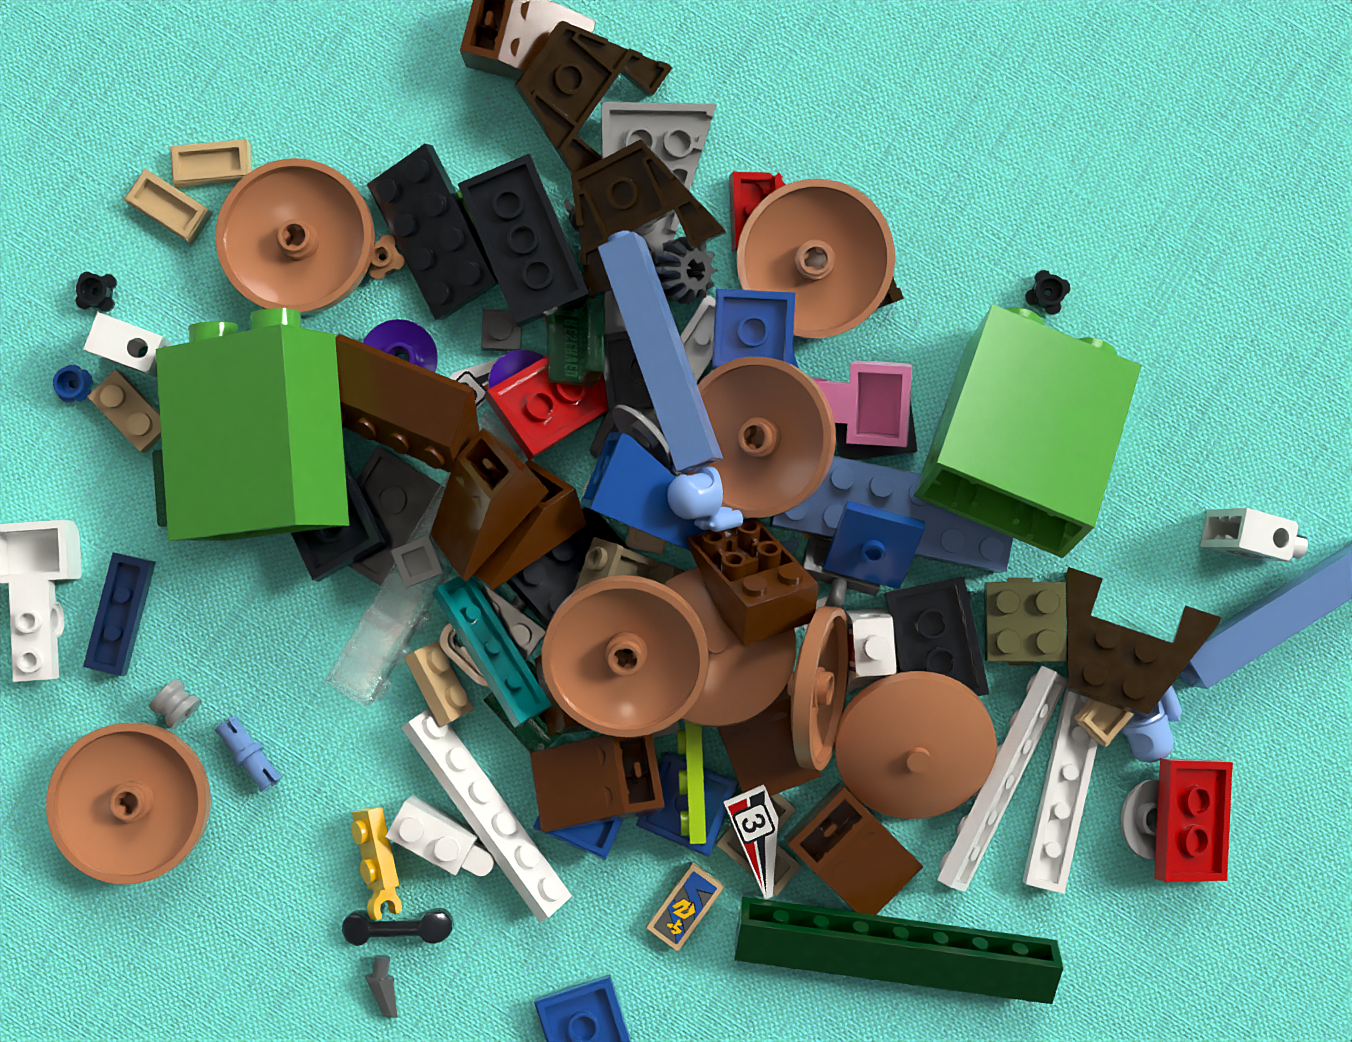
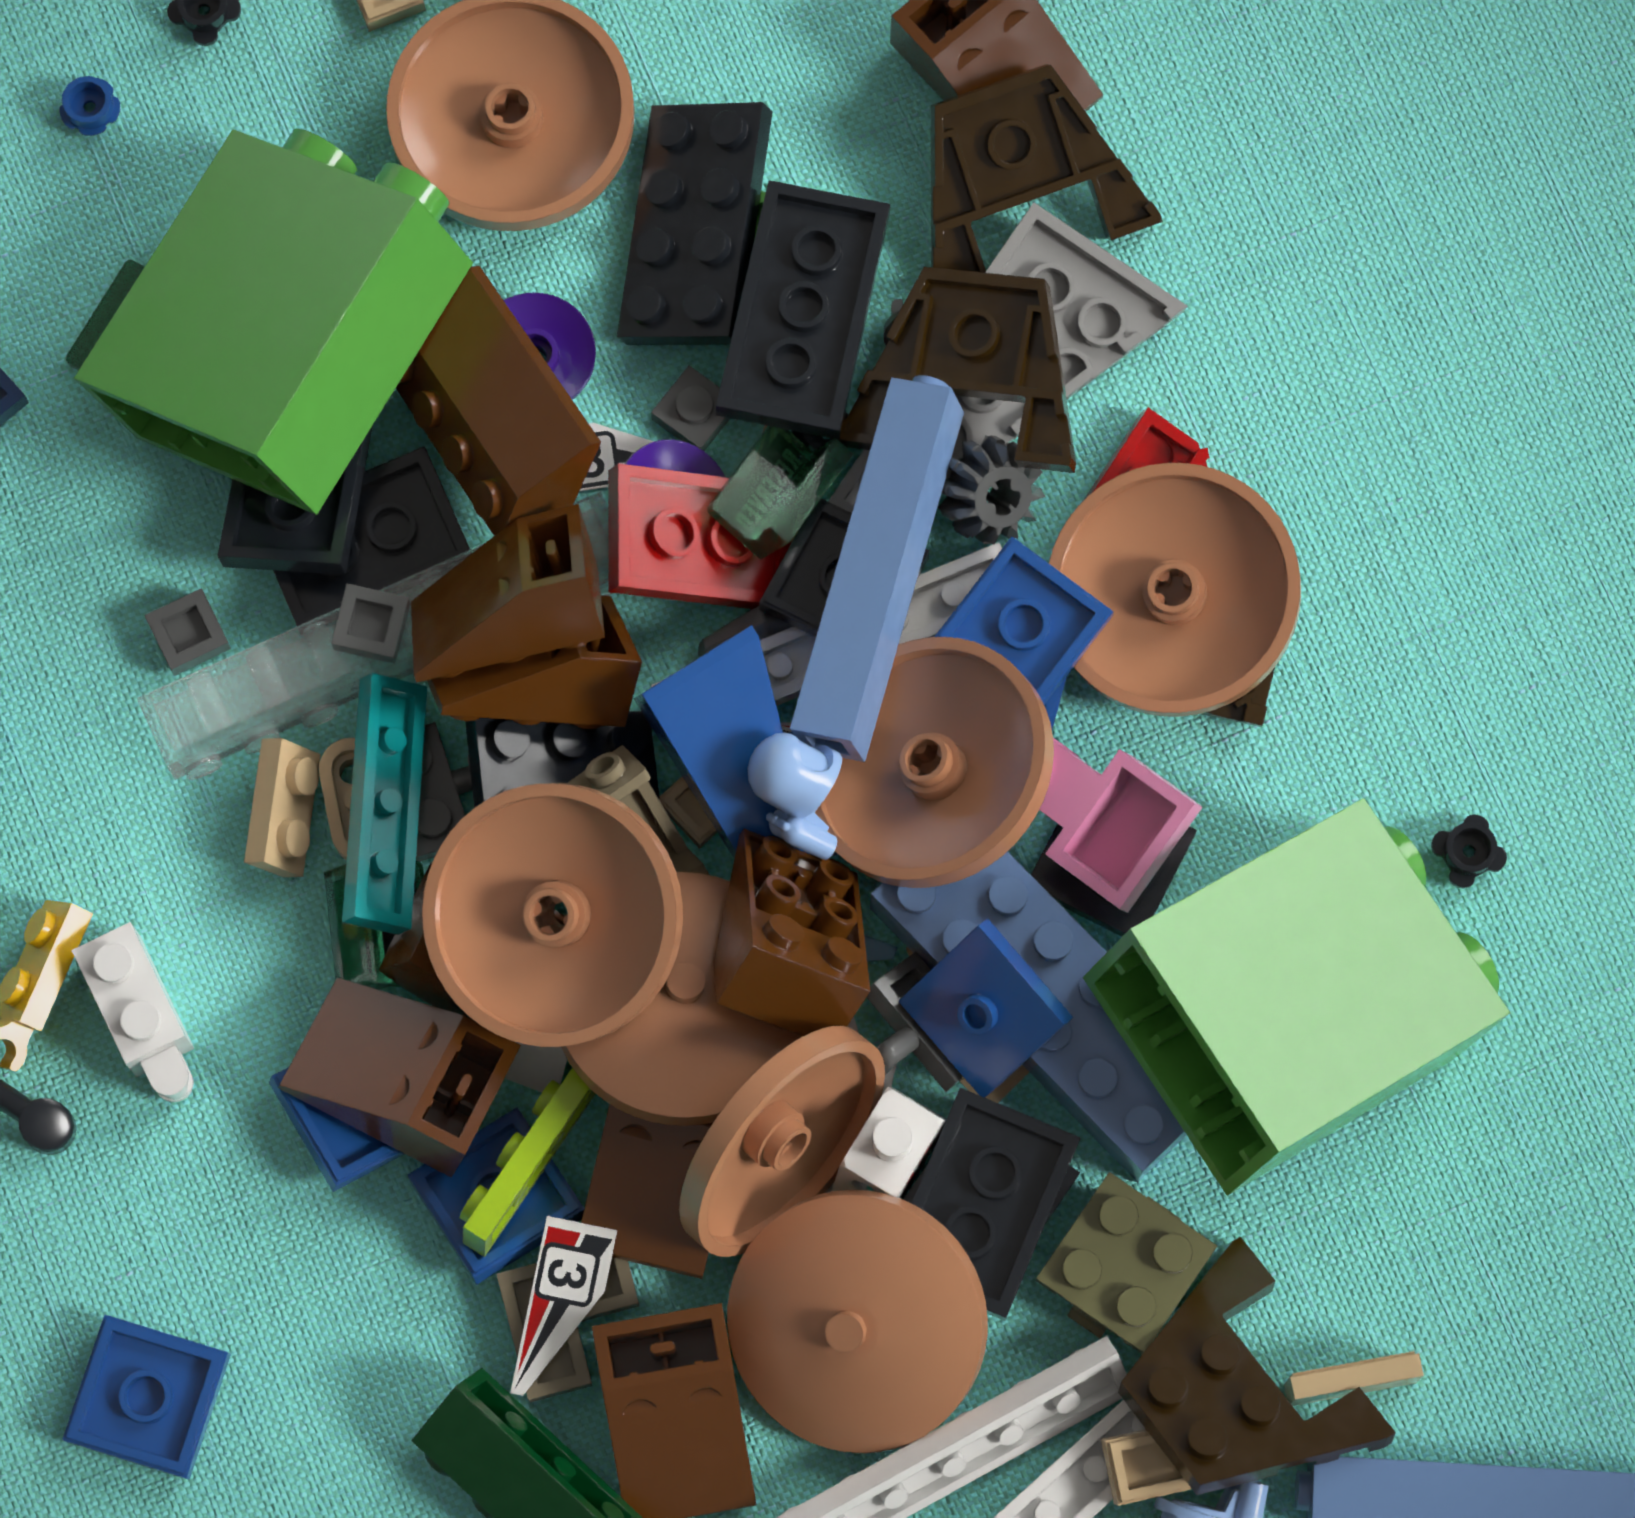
camera: 35 degrees right, 10 degrees down
(122, 344) = (189, 92): white torso -> none
(128, 410) = (135, 188): tan plate -> none
(324, 625) = (187, 632): none -> dark grey plate
(393, 259) = (609, 228): medium nougat plate -> none
(487, 814) = (222, 1024): white plate -> none
(645, 431) = (784, 654): light grey dish -> none
(685, 906) = (395, 1333): tile -> none
(1173, 600) = (1342, 1379): none -> tan tile
(1252, 535) = (1506, 1346): white torso -> none

